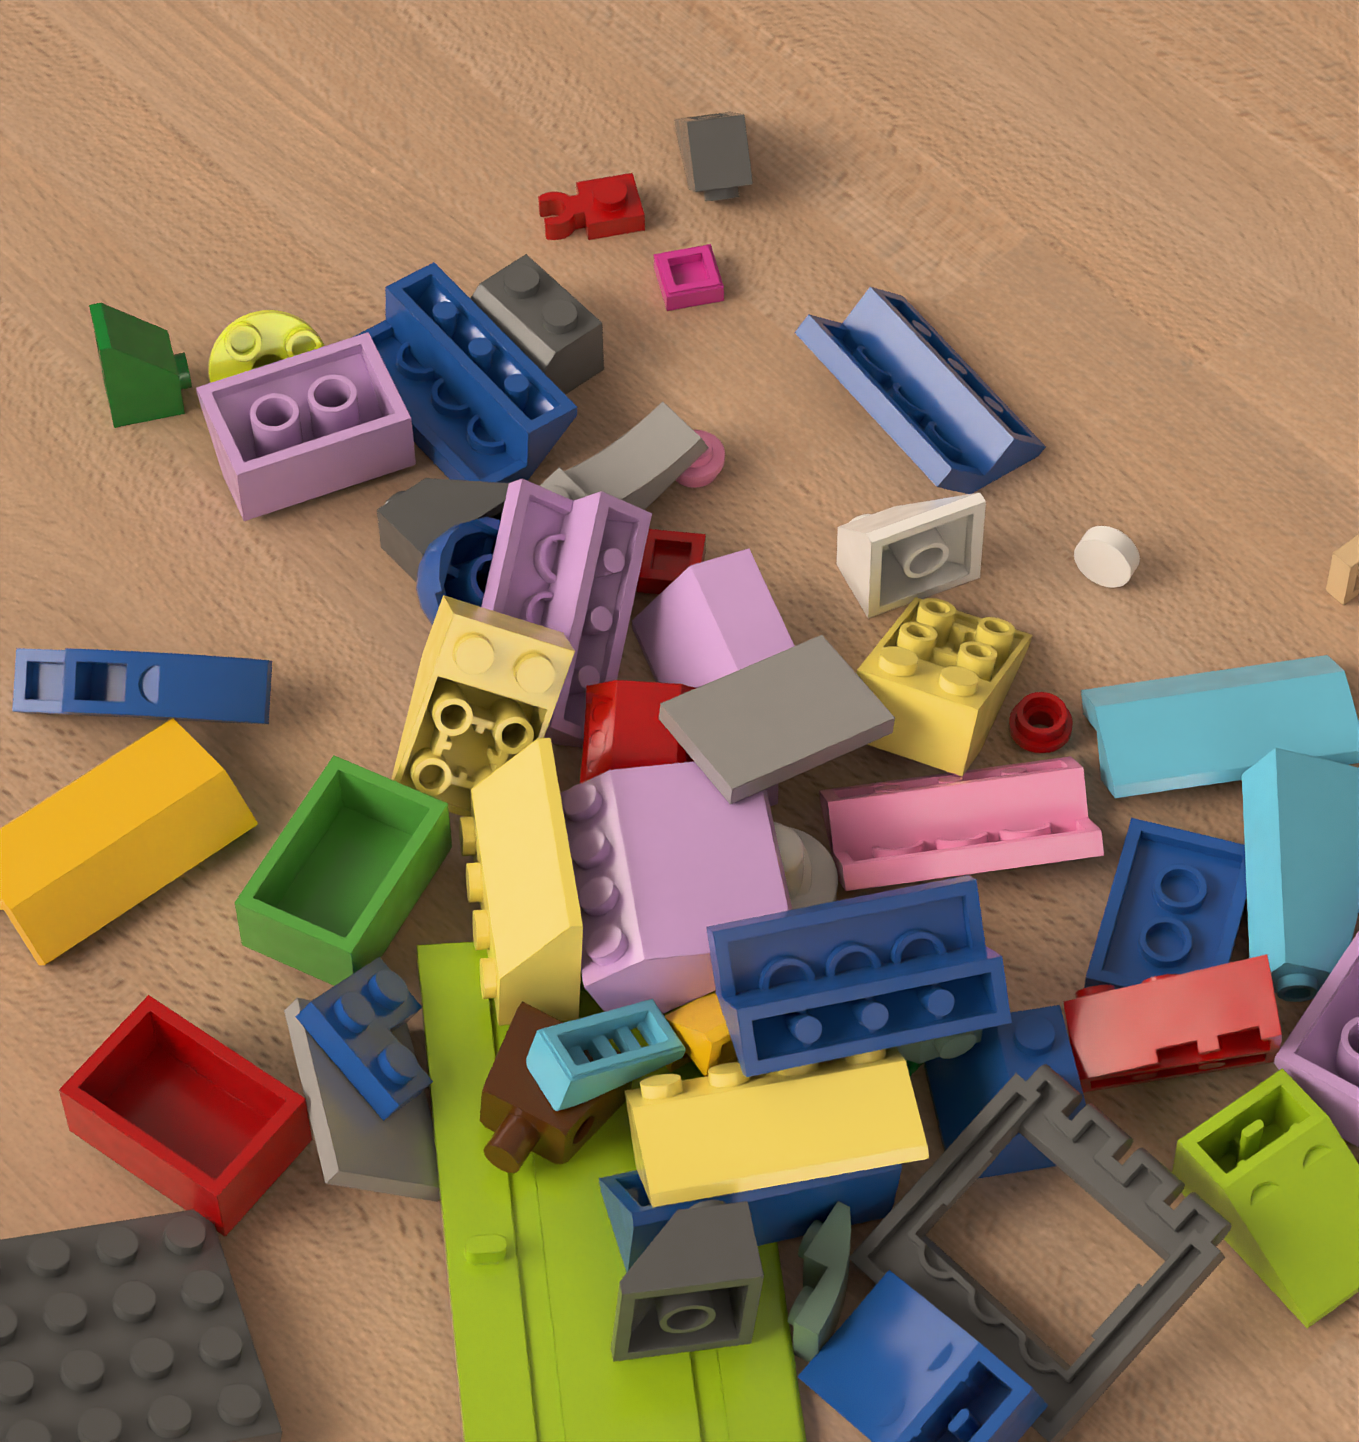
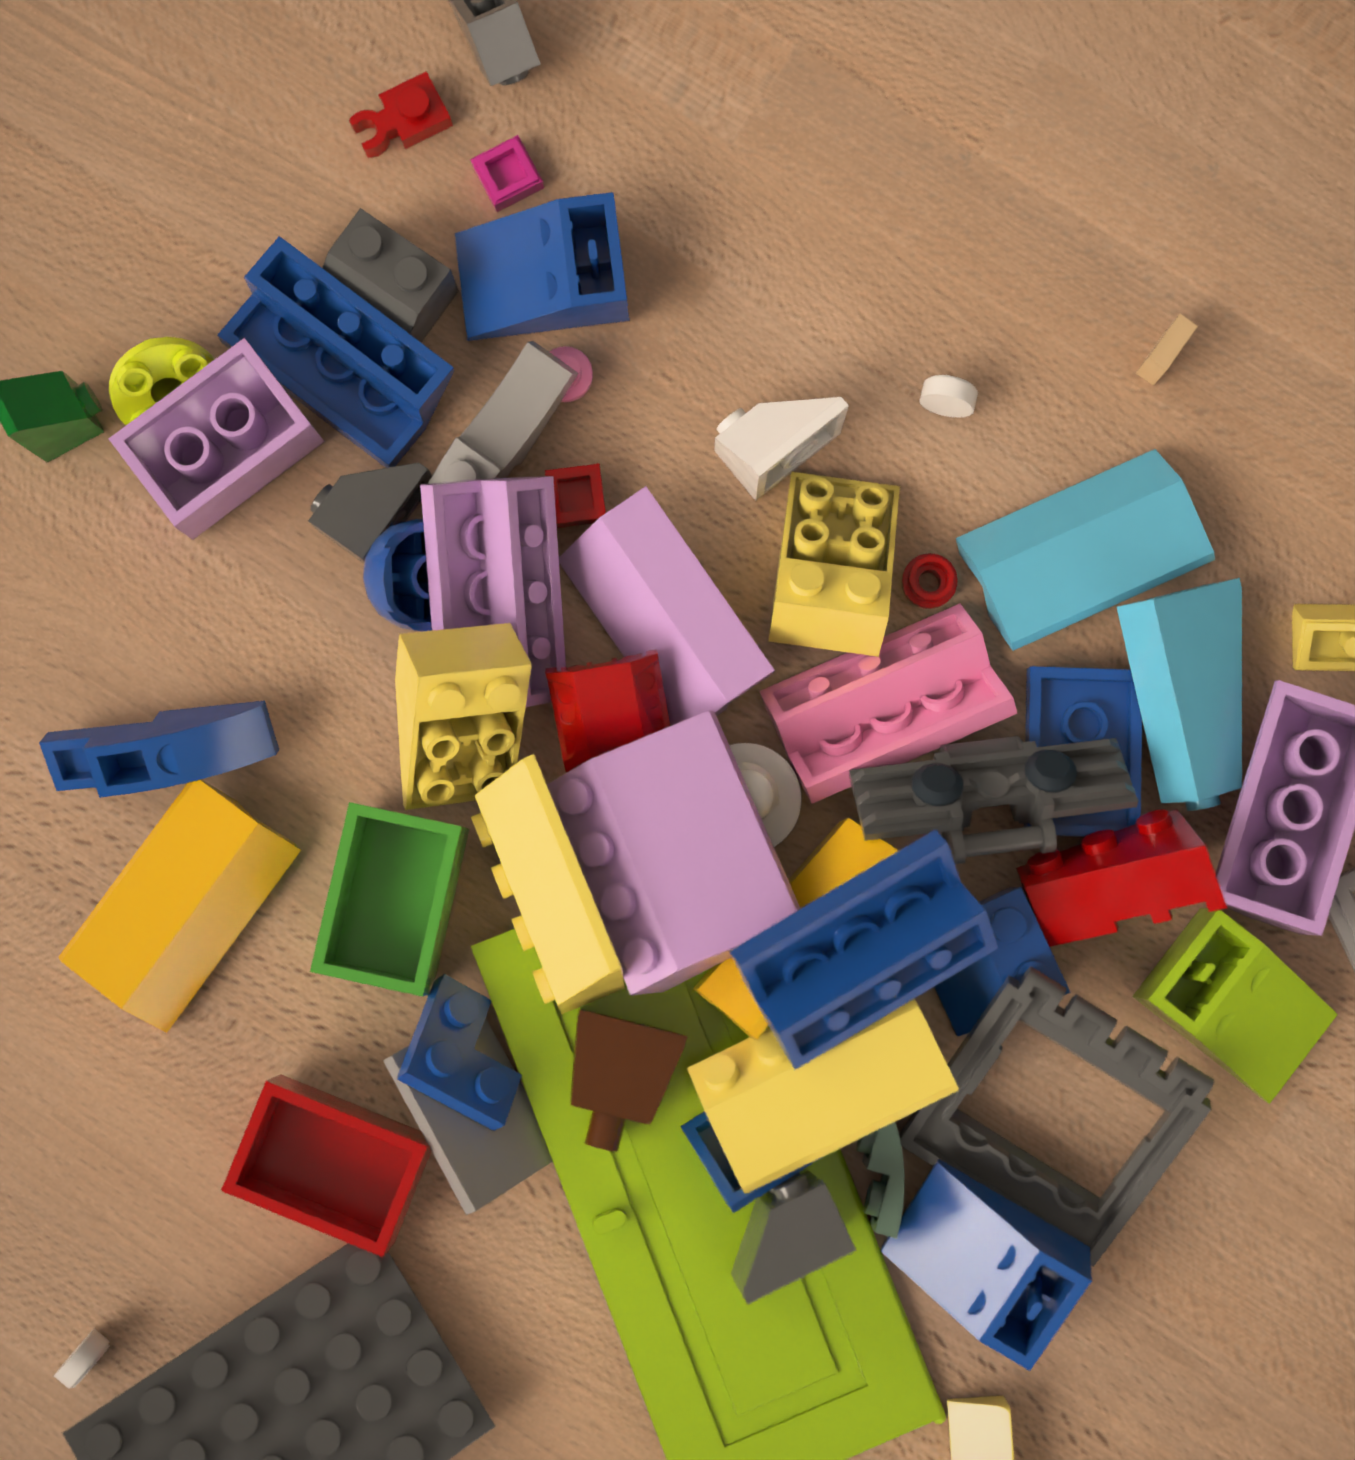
camera: 10 degrees left, 30 degrees up
(571, 1079) = (628, 1082): medium azure slope -> none
(704, 355) = (543, 269): none -> blue slope
(776, 719) = (719, 674): light grey tile -> none
(921, 392) = (744, 254): blue slope -> none
(1101, 910) = (989, 773): none -> dark grey piece

